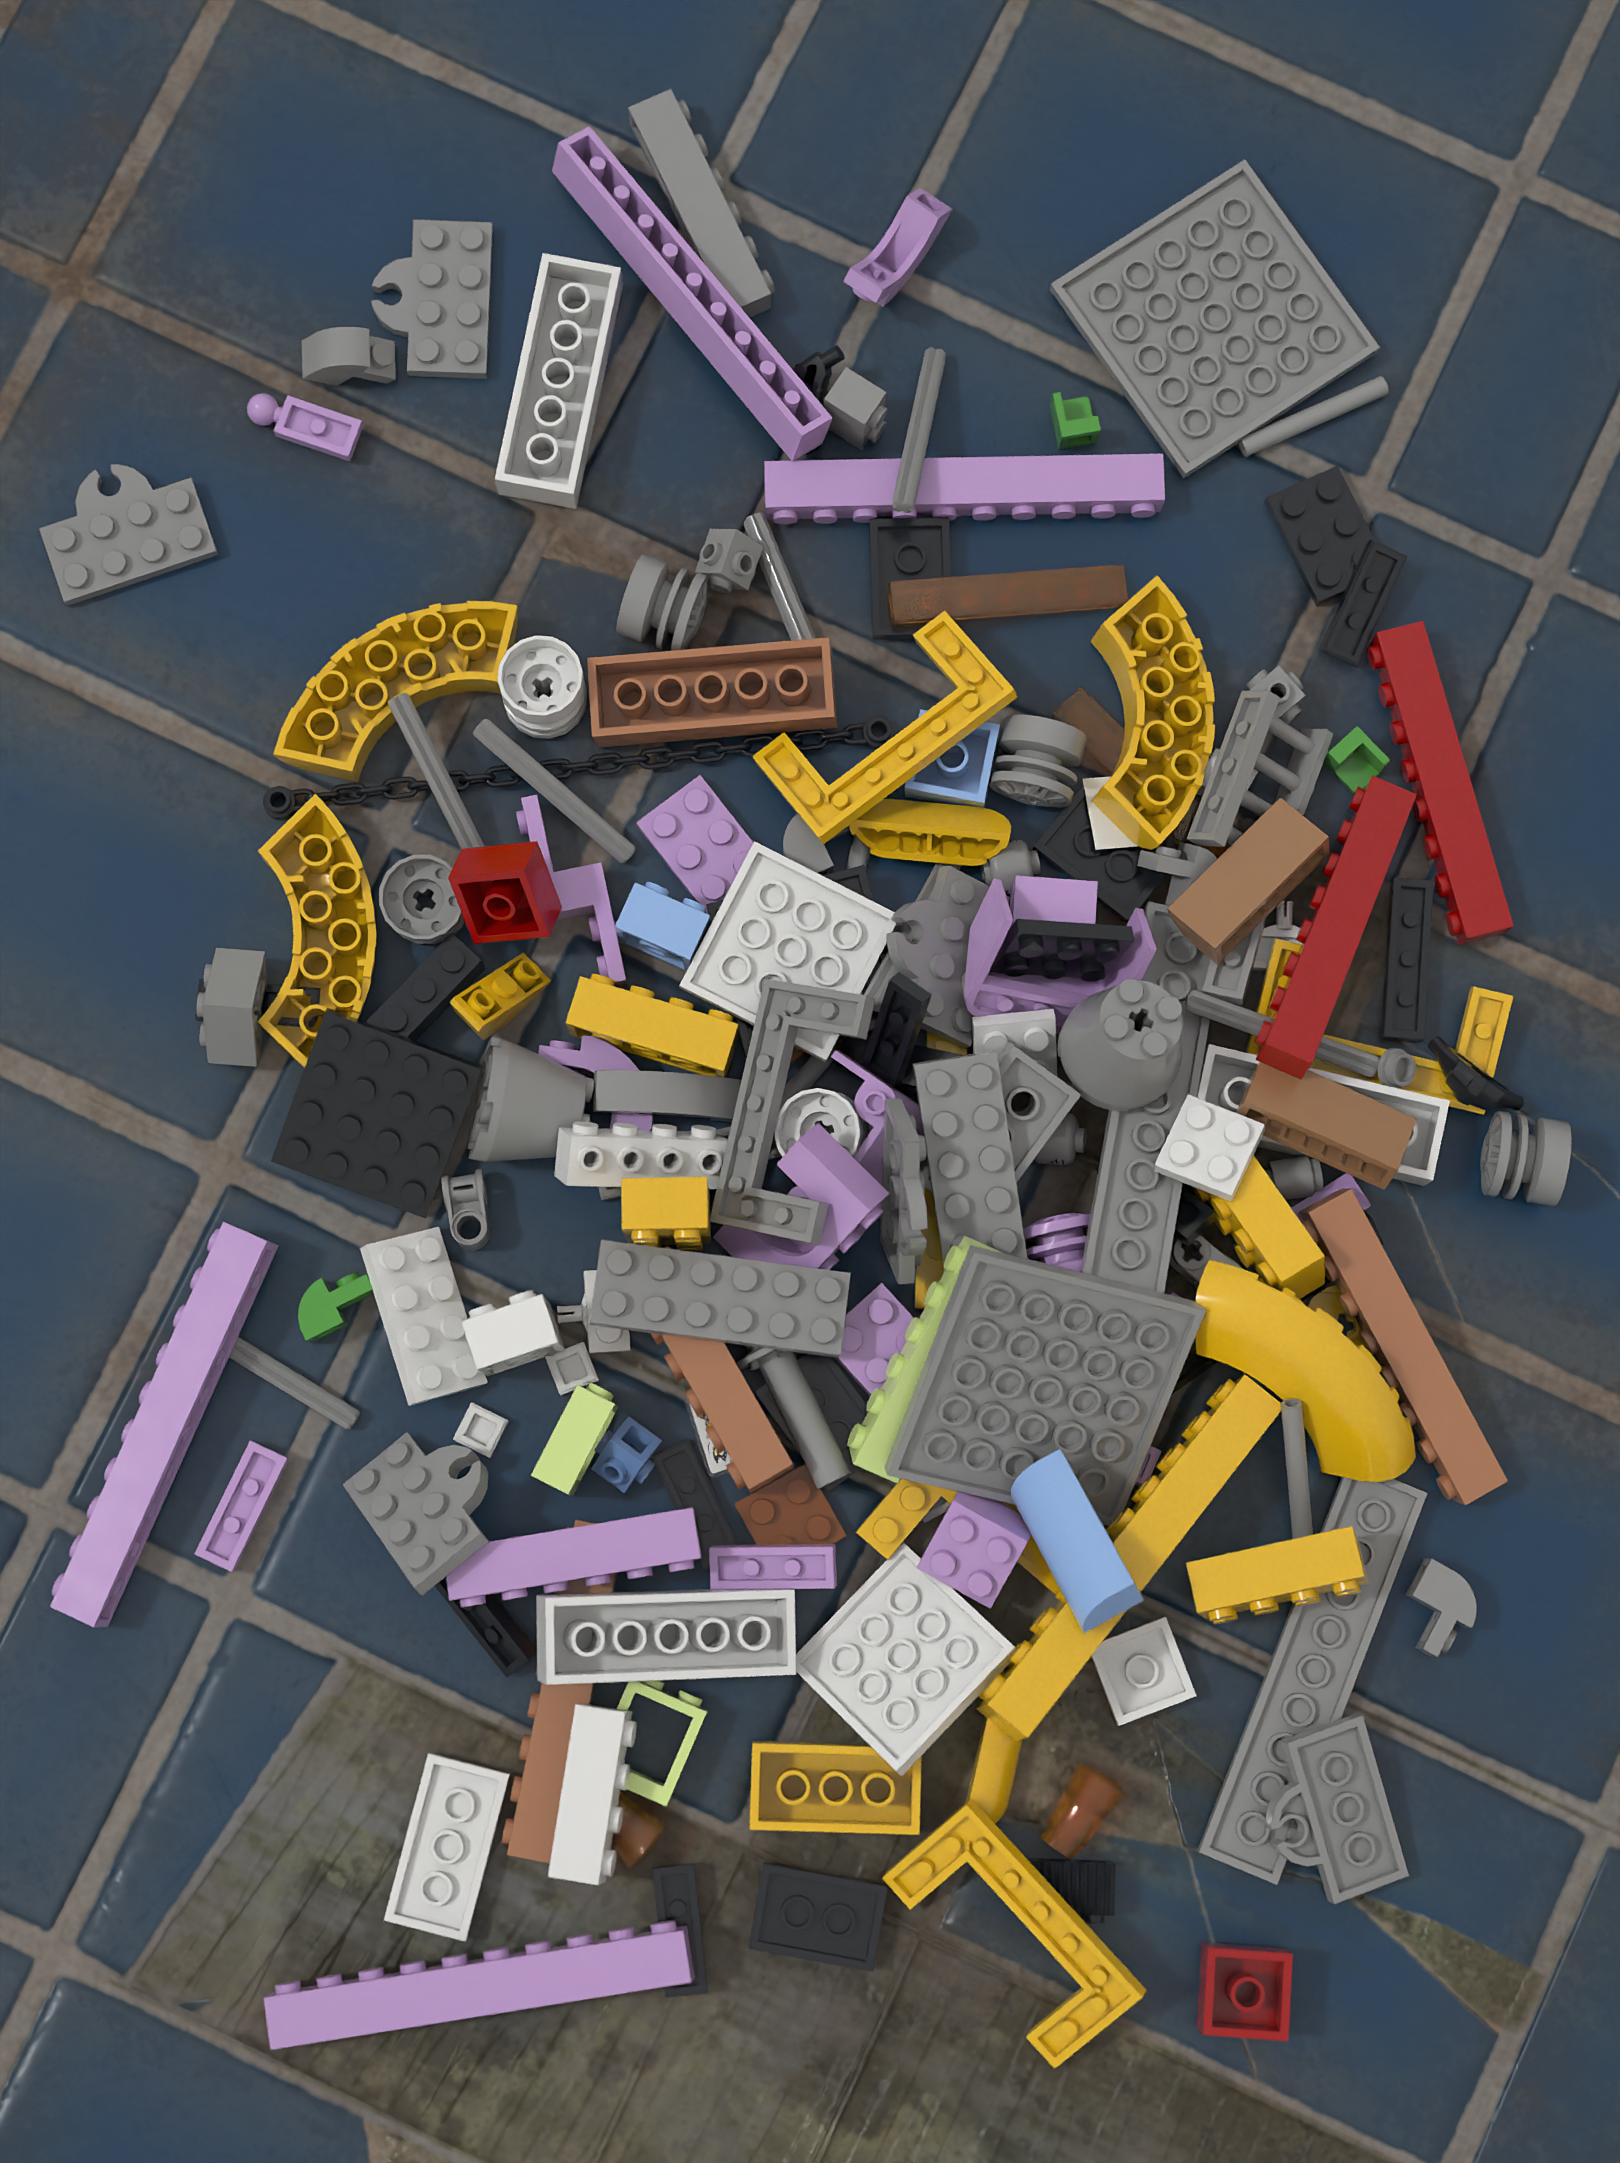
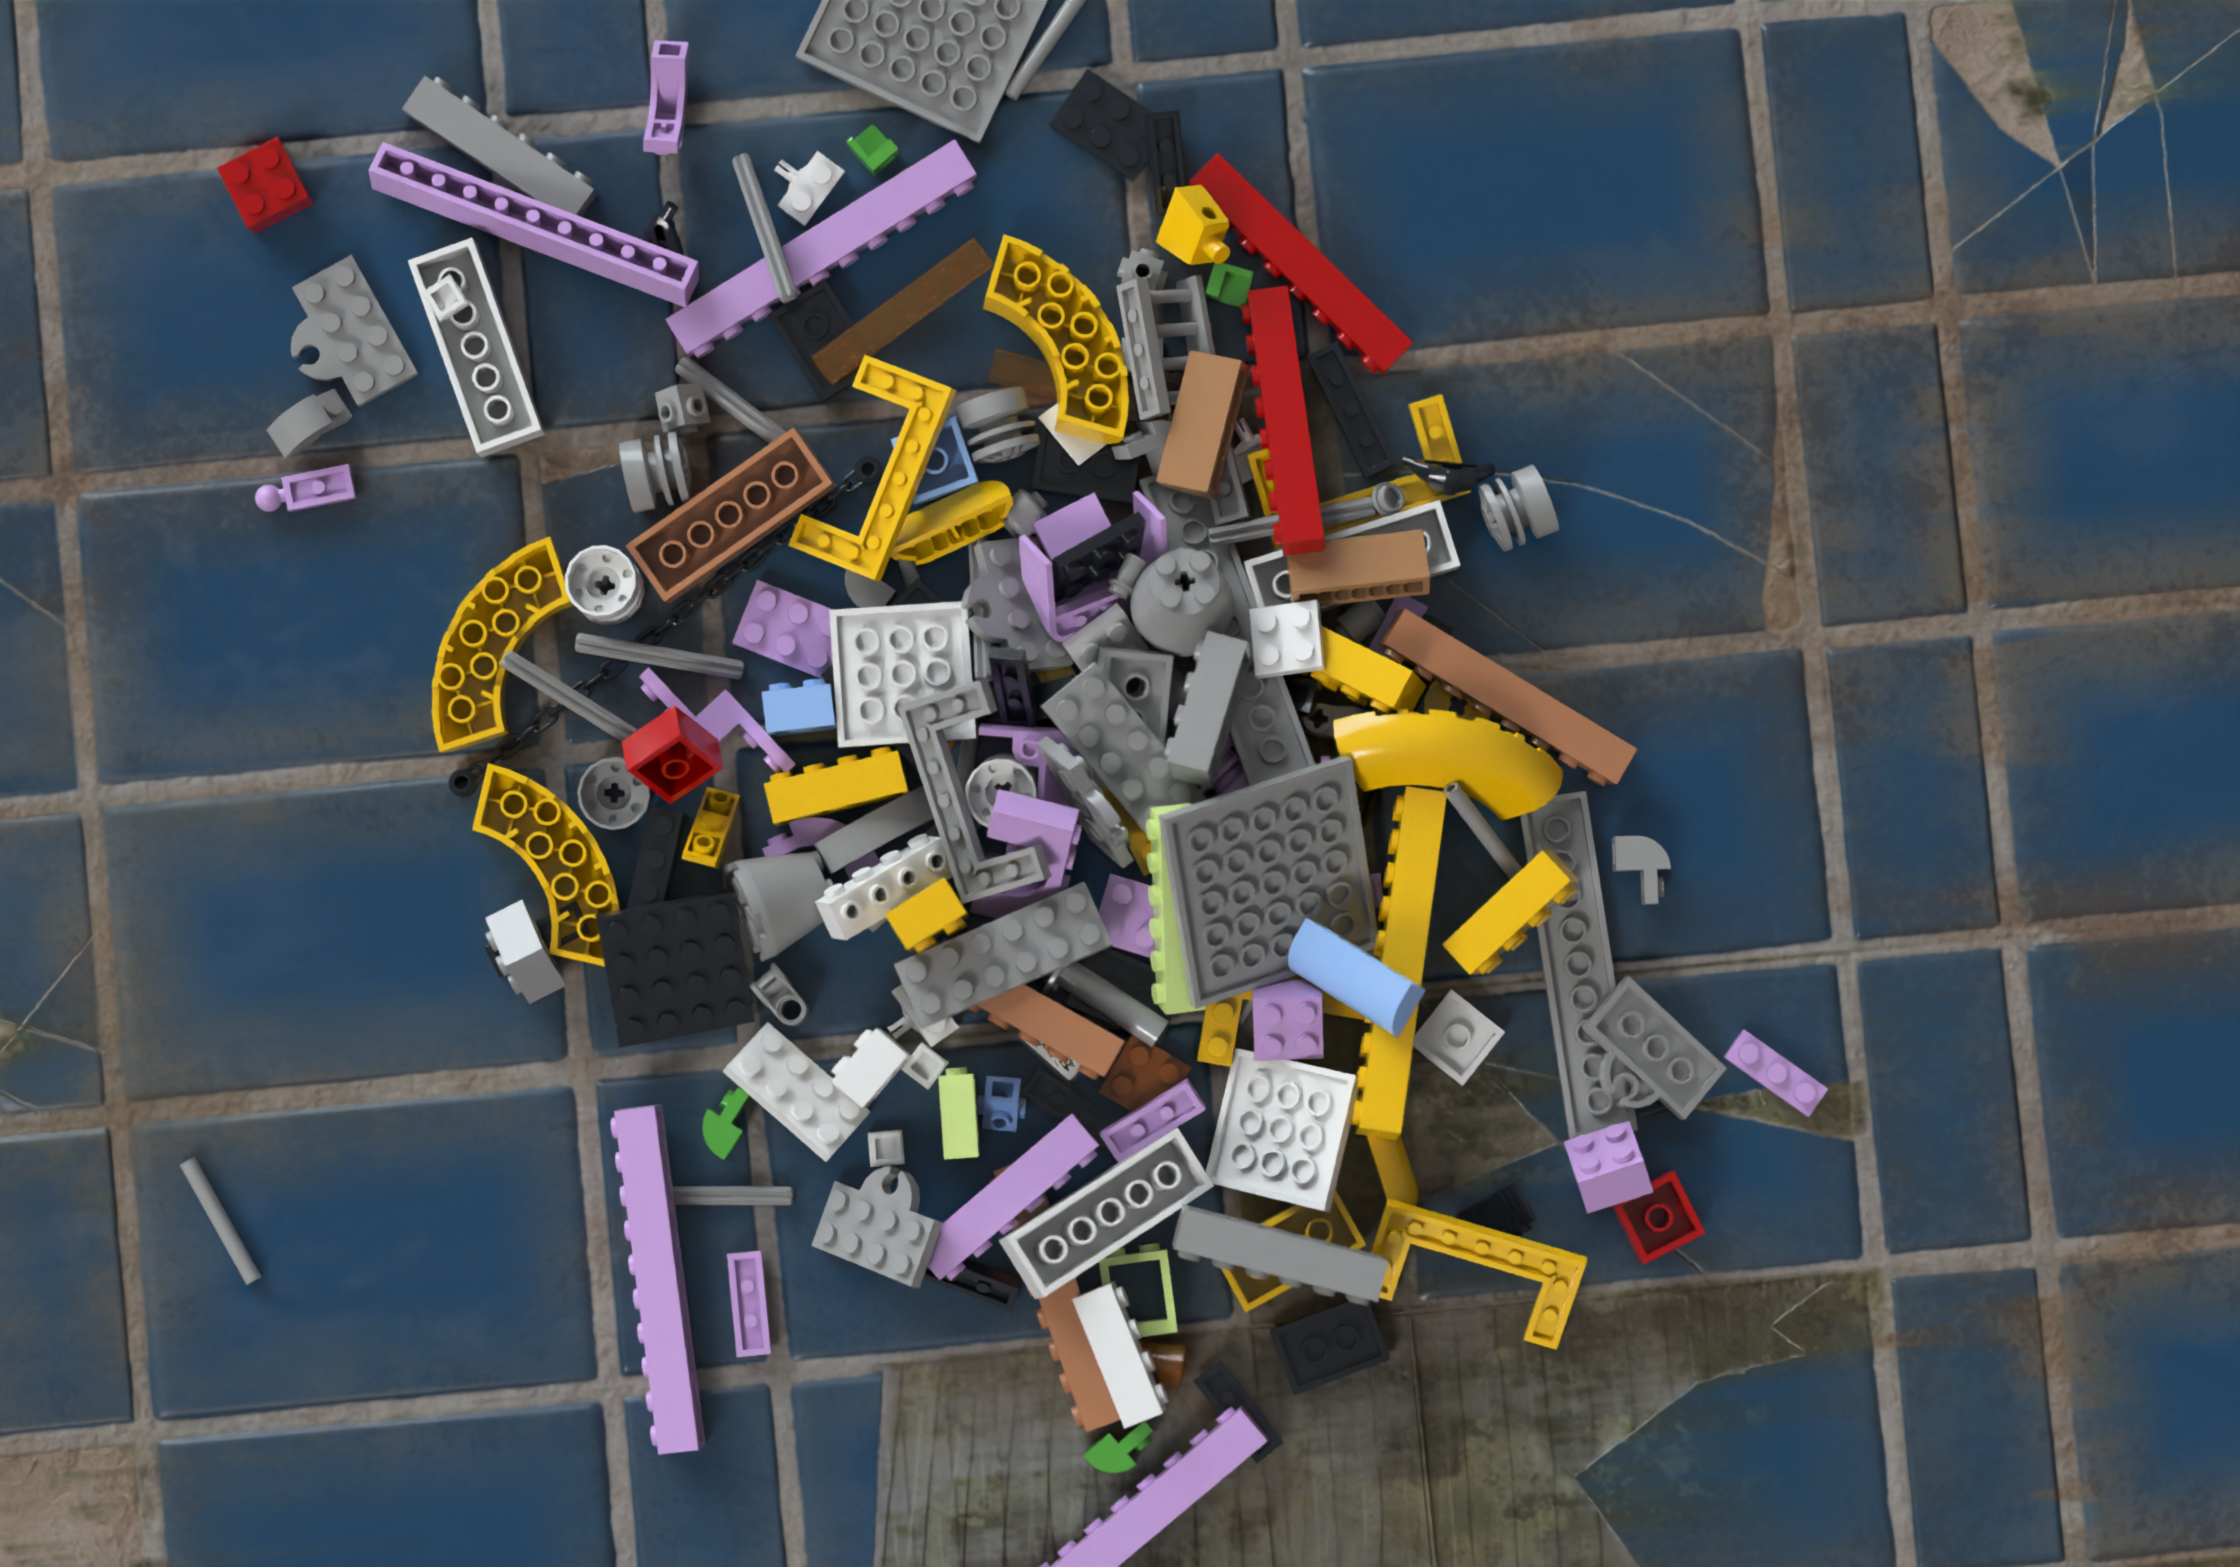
camera: 30 degrees left, 5 degrees up
(126, 535) = (226, 651): light grey plate -> none
(447, 1847) = (1040, 1452): white plate -> none
(448, 106) = (265, 185): none -> red brick
(521, 1896) = (1113, 1455): none -> bright green brick
(557, 310) = (445, 298): none -> white tile
(824, 1789) = (1279, 1253): none -> light grey brick
(856, 409) = (709, 240): light grey piece -> none
(986, 419) = (808, 186): none -> white plate
(1079, 987) = (1127, 576): none -> light grey pin
(1081, 1810) = (1470, 1160): clear orange plant -> none
(1087, 1168) = (1209, 709): none -> light grey brick
(1224, 1906) = (1608, 1166): none -> lavender brick
(1356, 679) = (1194, 227): none -> yellow torso
(1457, 1912) = (1775, 1073): none -> lavender plate

